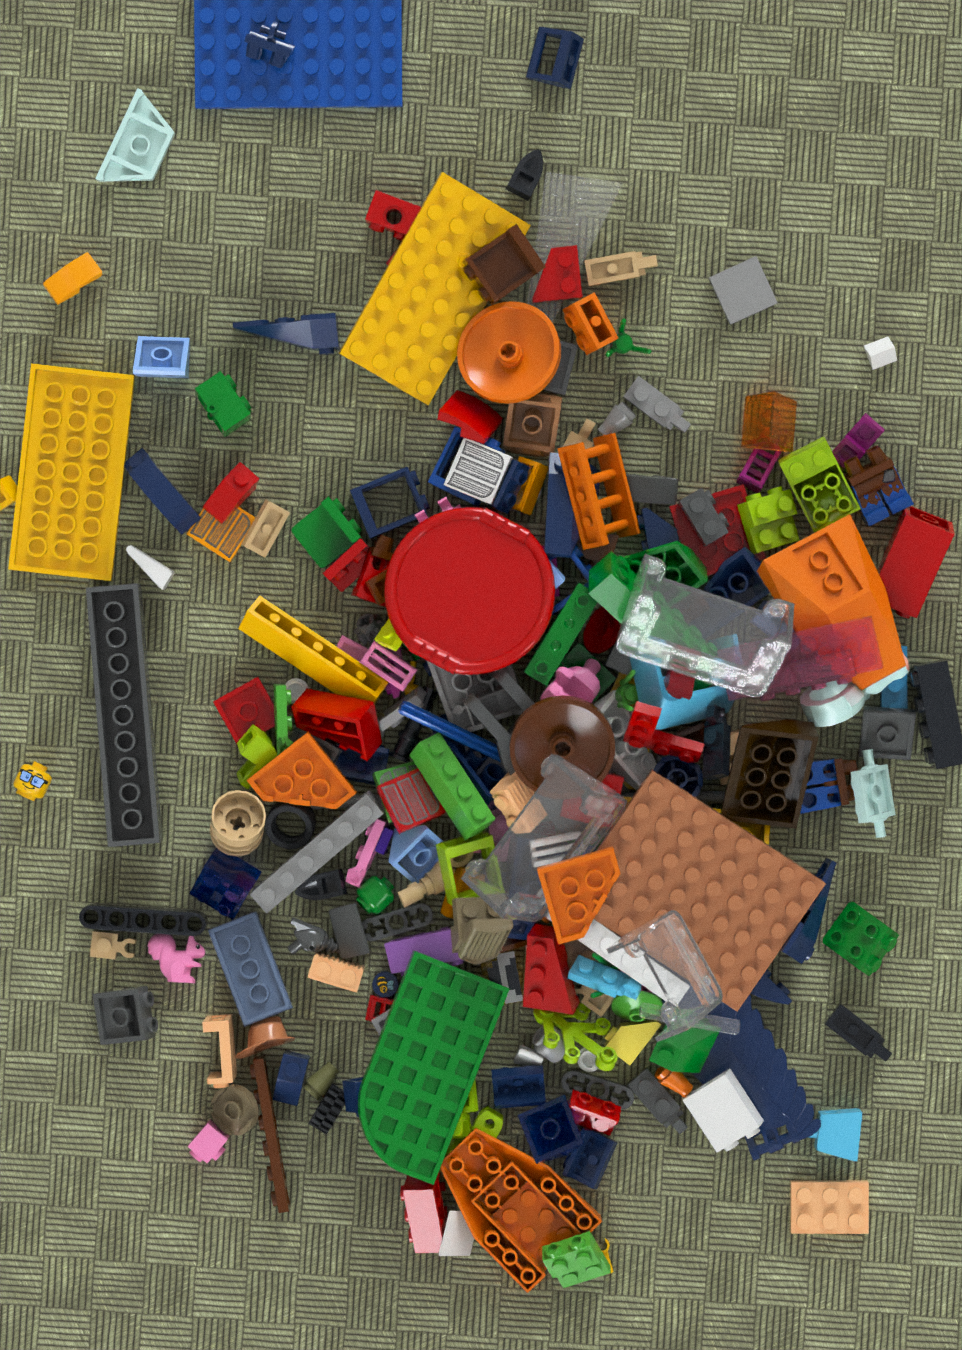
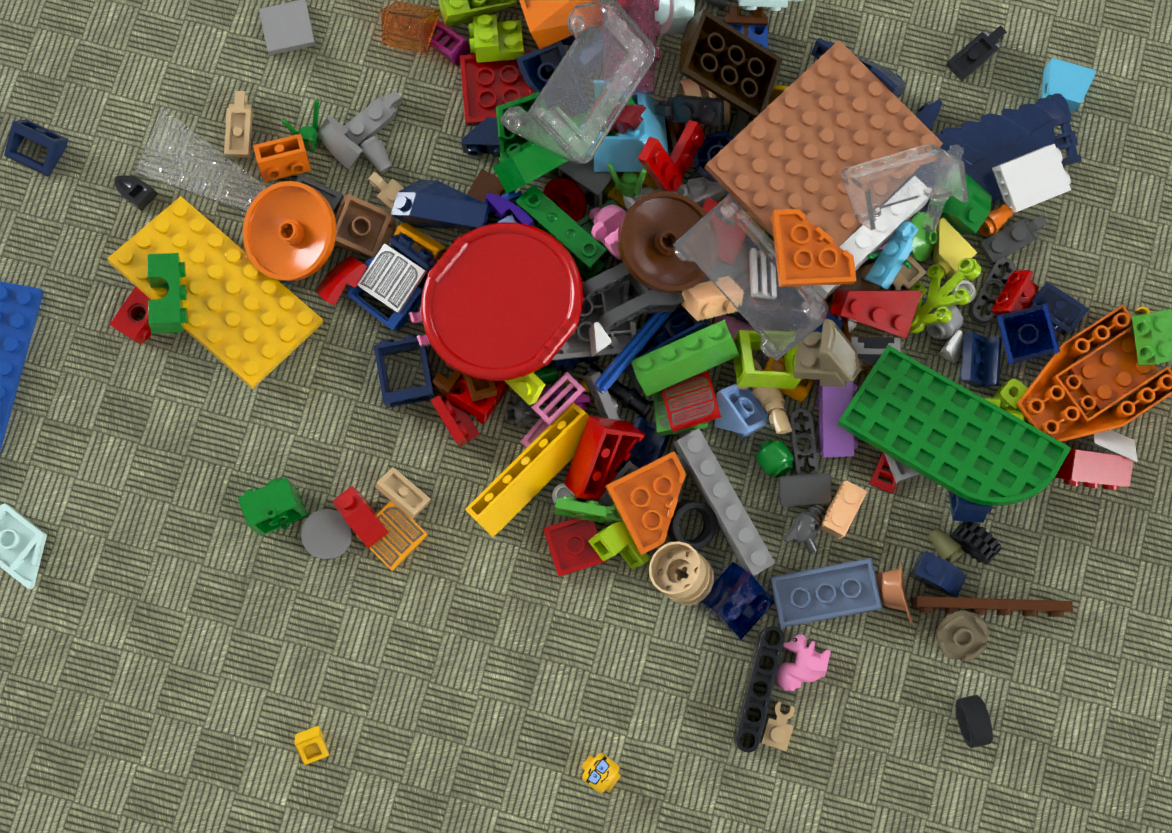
camera: 75 degrees left, 10 degrees down
(71, 472) = (305, 671): yellow plate -> none
(72, 277) = (117, 632): light orange slope -> none
(124, 715) = (553, 665): dark grey brick -> none
(125, 1015) = (851, 727): dark grey plate -> none
(153, 1132) = (974, 721): none -> black tyre
(159, 573) = (419, 606): white slope -> none
(161, 491) = (343, 583): dark blue arch -> none
(162, 357) = (217, 559): light blue slope -> none
(208, 1143) = (991, 669): bright pink brick -> none
(209, 460) = (326, 534): none -> light grey tile
(225, 1026) = (877, 628): light nougat panel -> none
(311, 332) = (227, 412): dark blue wedge -> none
(323, 886) = (757, 505): black plate -> none
(326, 532) = (419, 434): green bracket -> none
(366, 854) = (734, 459): bright pink hinge -> none
(385, 841) = (724, 438): dark purple tile -> none
(385, 984) = (861, 467): tile -> none
(436, 241) = (167, 313): none -> green arch
(452, 696) = (598, 338): none -> white slope
(503, 265) = (207, 220): reddish brown panel -> none
(560, 277) = (233, 175): red wing -> none
(570, 571) = (503, 208): none -> dark purple slope
(584, 496) = (435, 175): orange fence -> none
(625, 371) = (339, 145): none -> light grey slope
(653, 489) = (445, 137): dark grey slope -> none
(703, 516) = (480, 90): dark grey brick -> none
(829, 1207) = (1132, 108): light nougat plate -> none
(860, 938) = (889, 34): green bracket -> none

